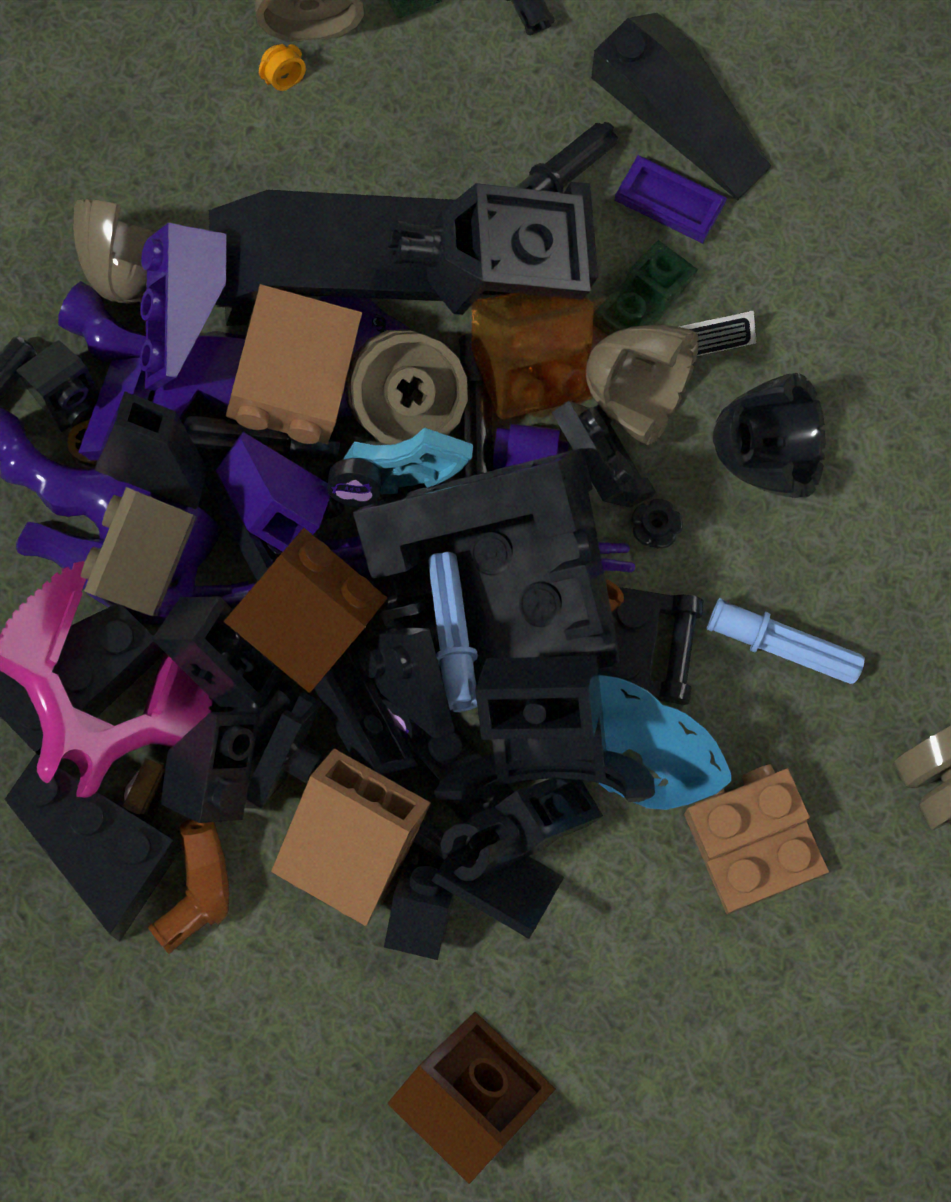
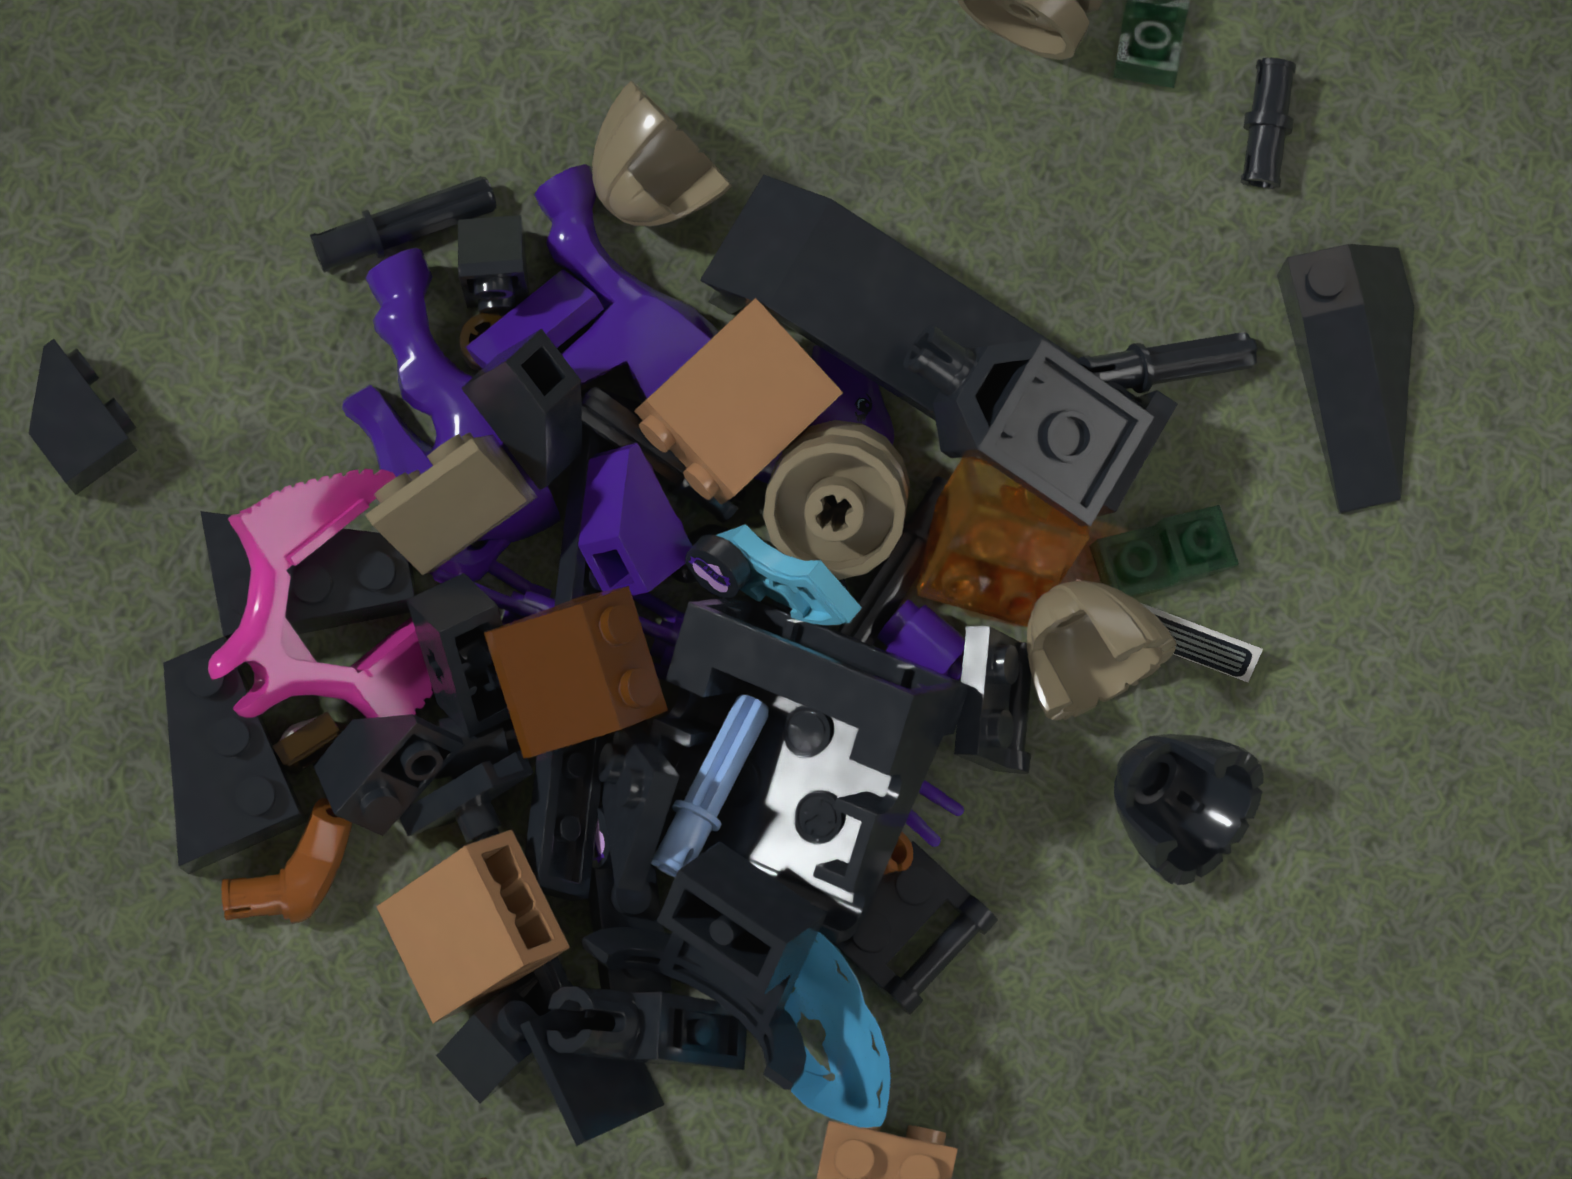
camera: 30 degrees right, 5 degrees up
(182, 287) = (675, 250): slope -> none
(278, 62) = (953, 45): light orange plate -> none
(648, 534) = (1003, 824): black plate -> none
(670, 199) = (1266, 466): dark purple tile -> none
(785, 641) = (1052, 1018): light blue axle -> none

